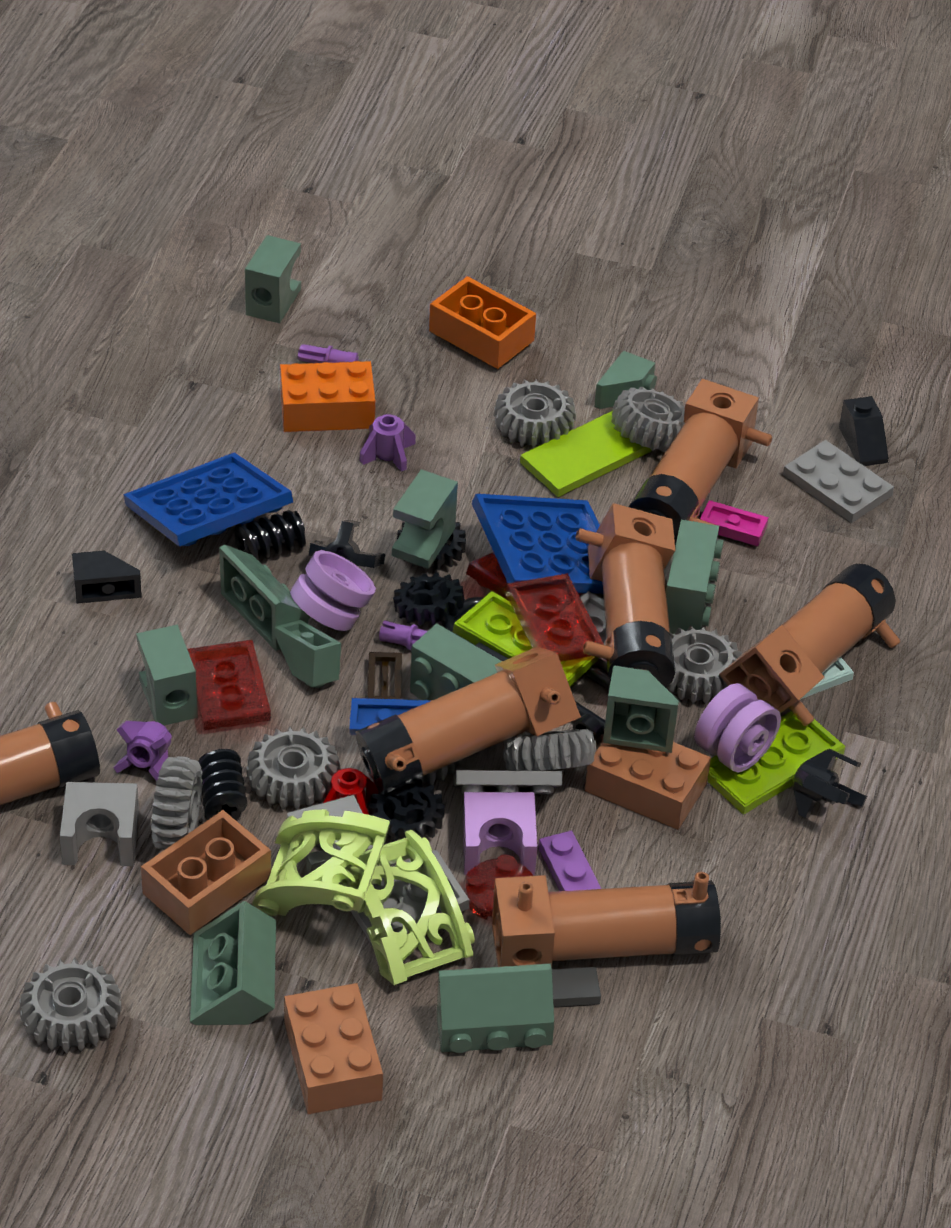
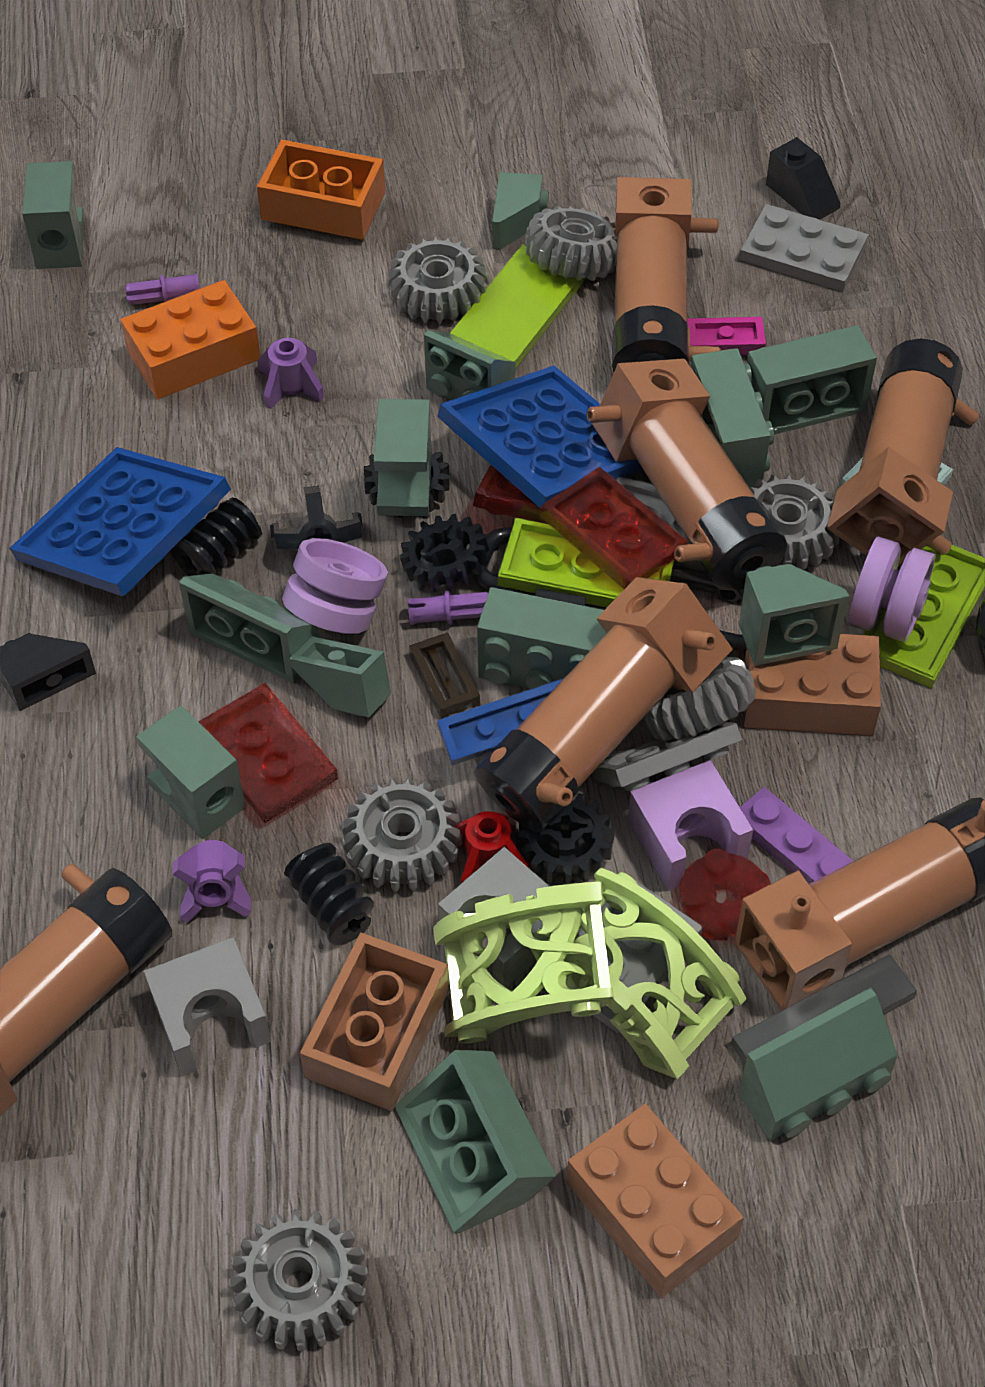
camera: 20 degrees left, 10 degrees up
(176, 800) = (298, 946): light grey gear -> none
(513, 475) = (461, 367): none -> sand green slope
(770, 570) = (813, 378): none -> sand green brick

